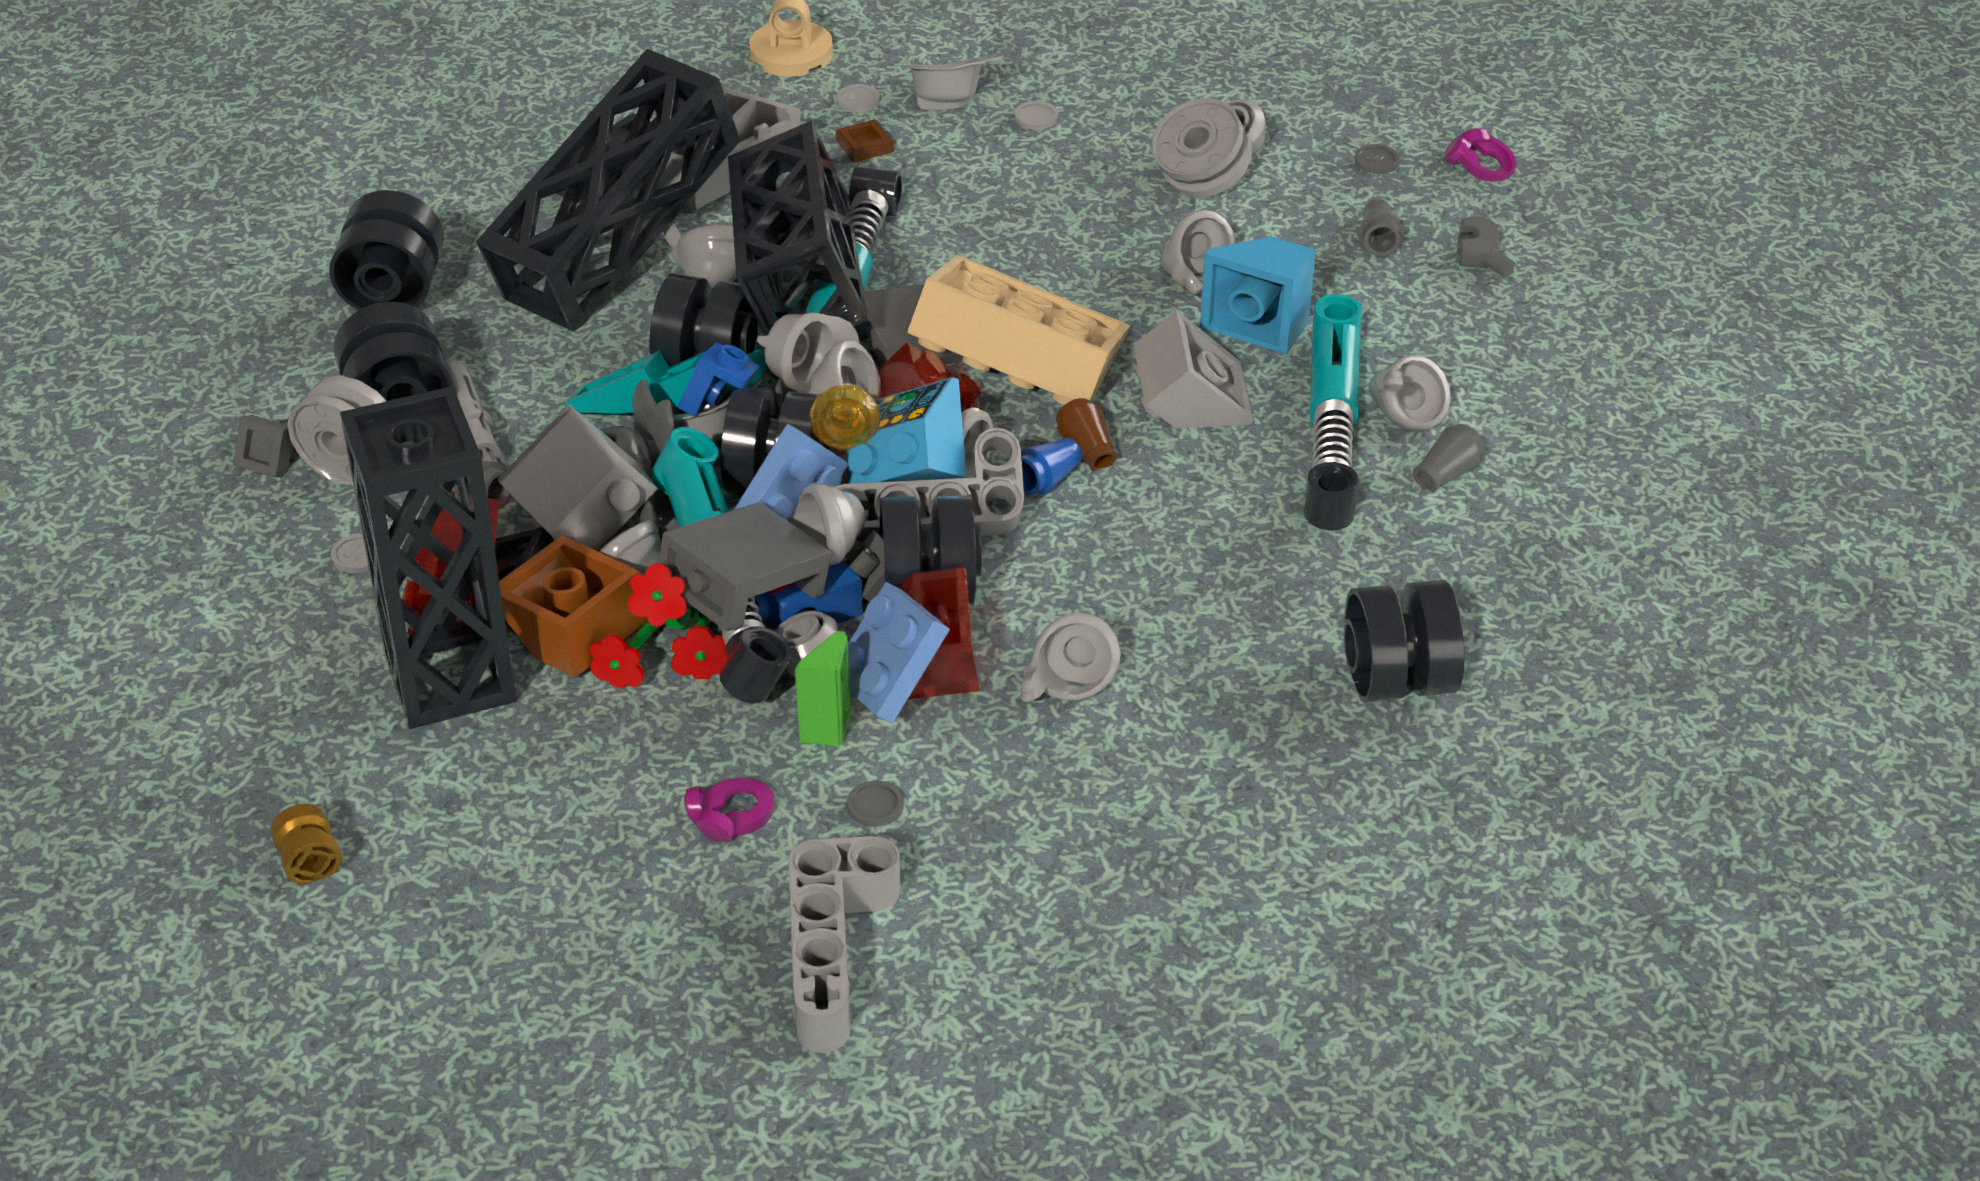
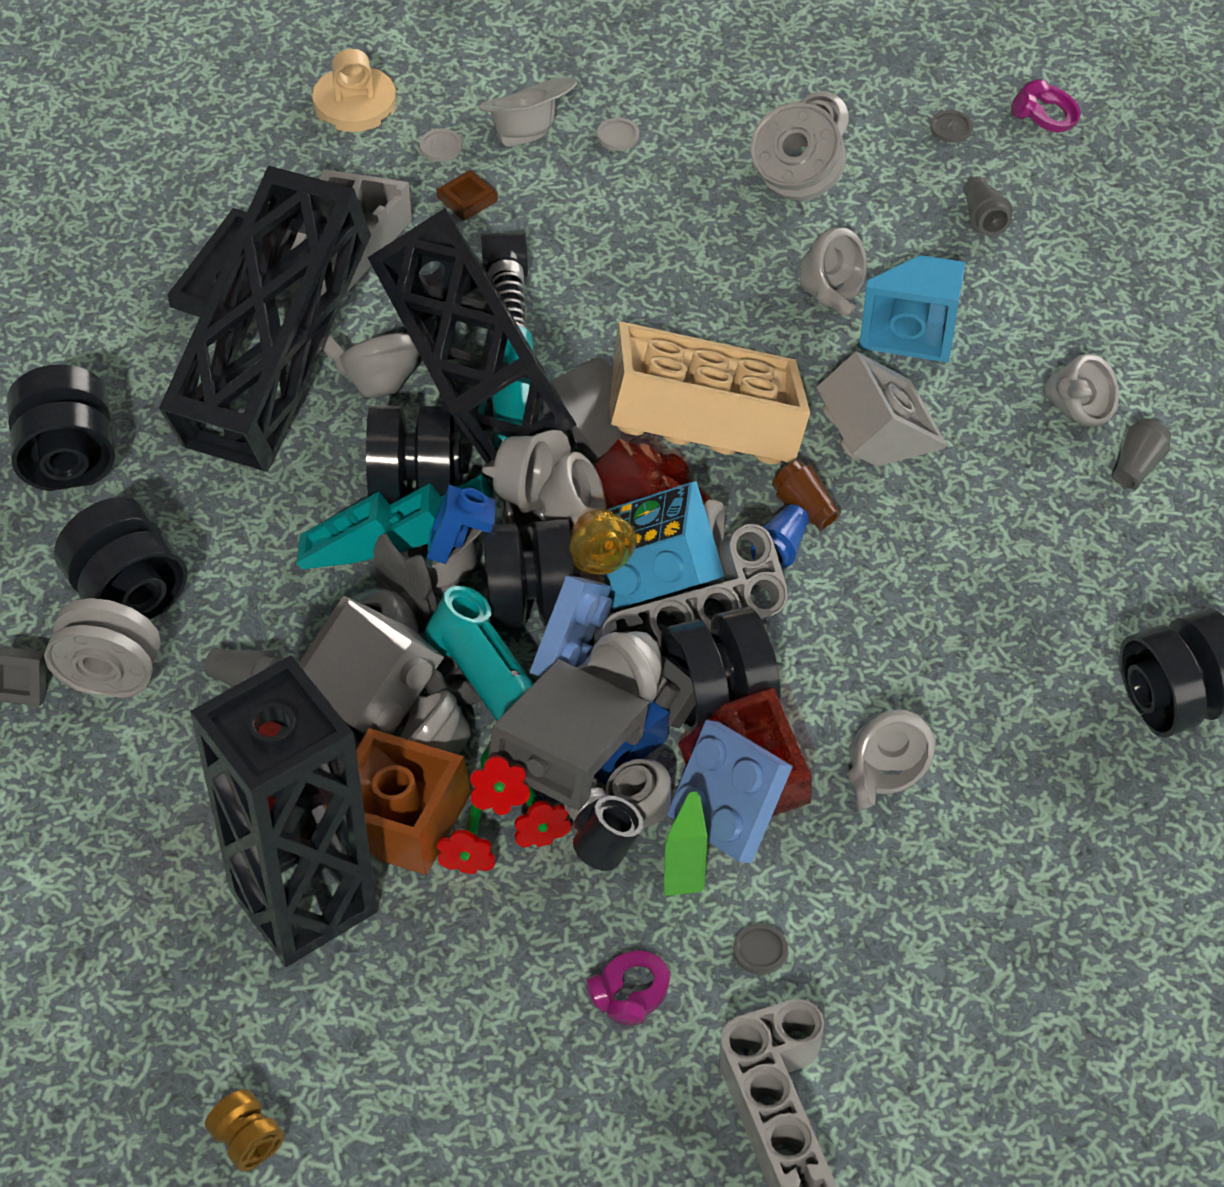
camera: 15 degrees left, 10 degrees up
(350, 554) = (155, 776): light grey piece -> none
(477, 418) = (214, 604): light grey pin -> none
(1333, 411) = (1021, 421): piece -> none
(1478, 246) = (1084, 207): dark grey piece -> none

